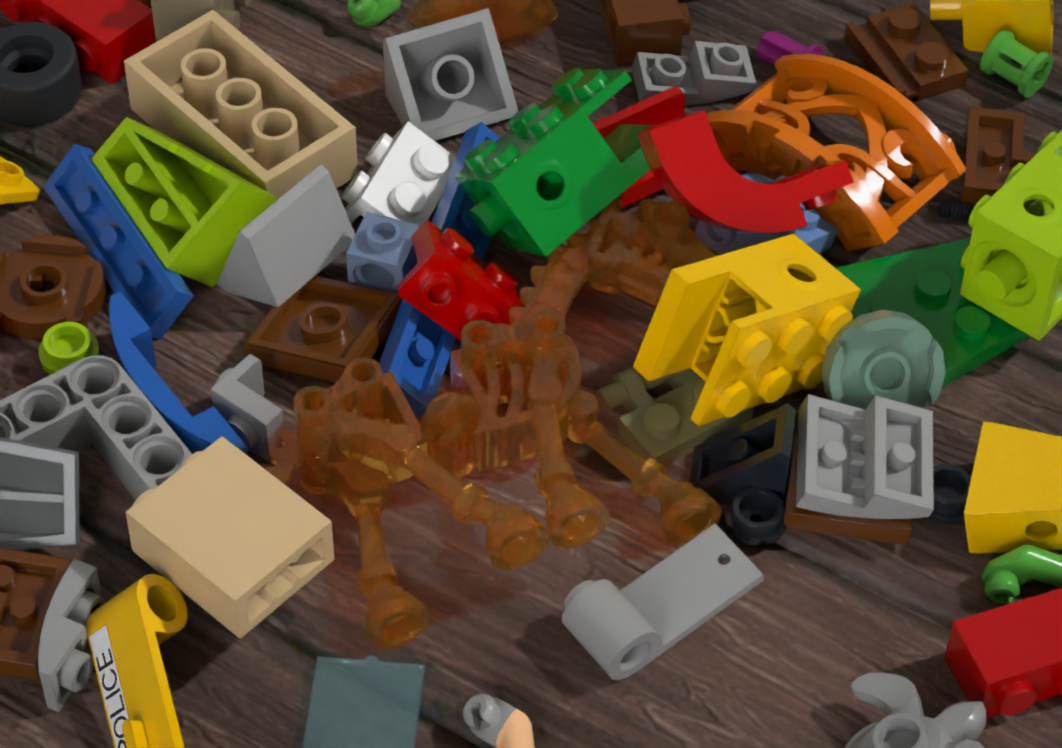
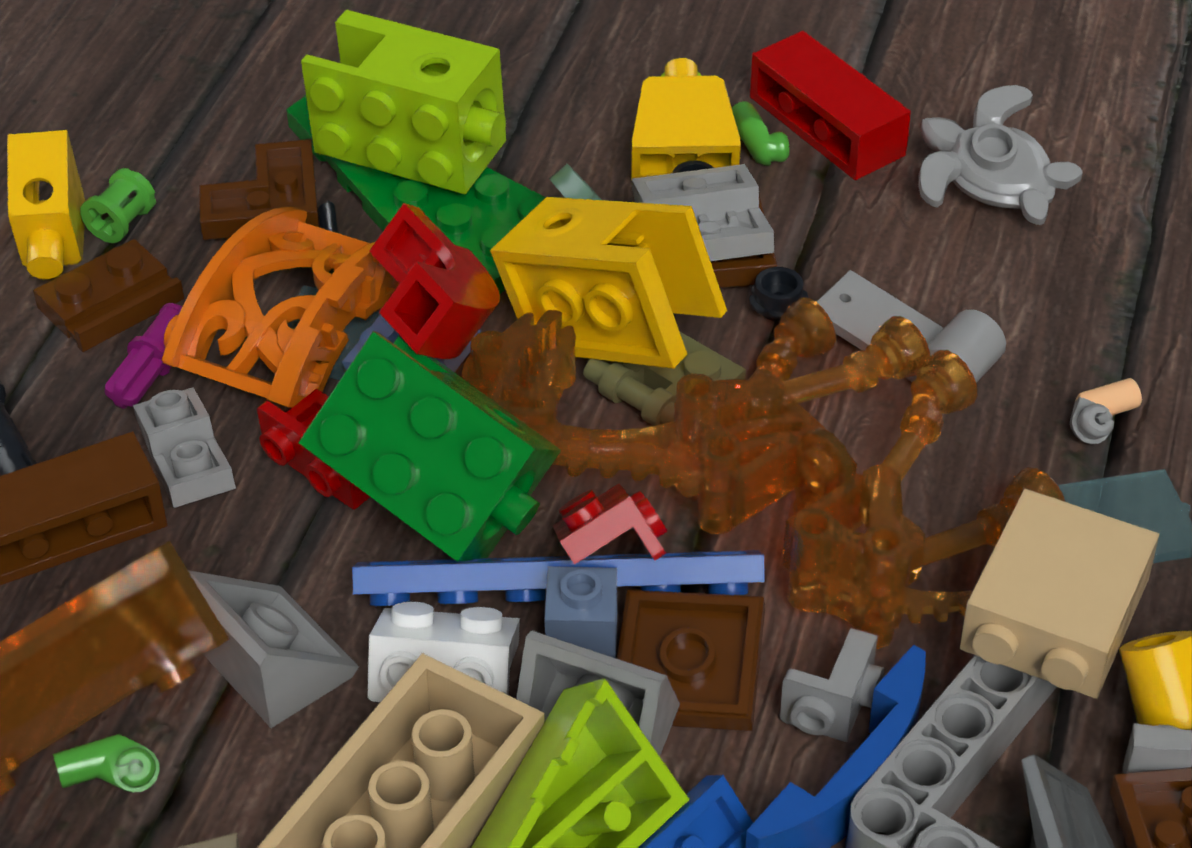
camera: 105 degrees left, 5 degrees down
(746, 457) = (737, 274): black slope -> none

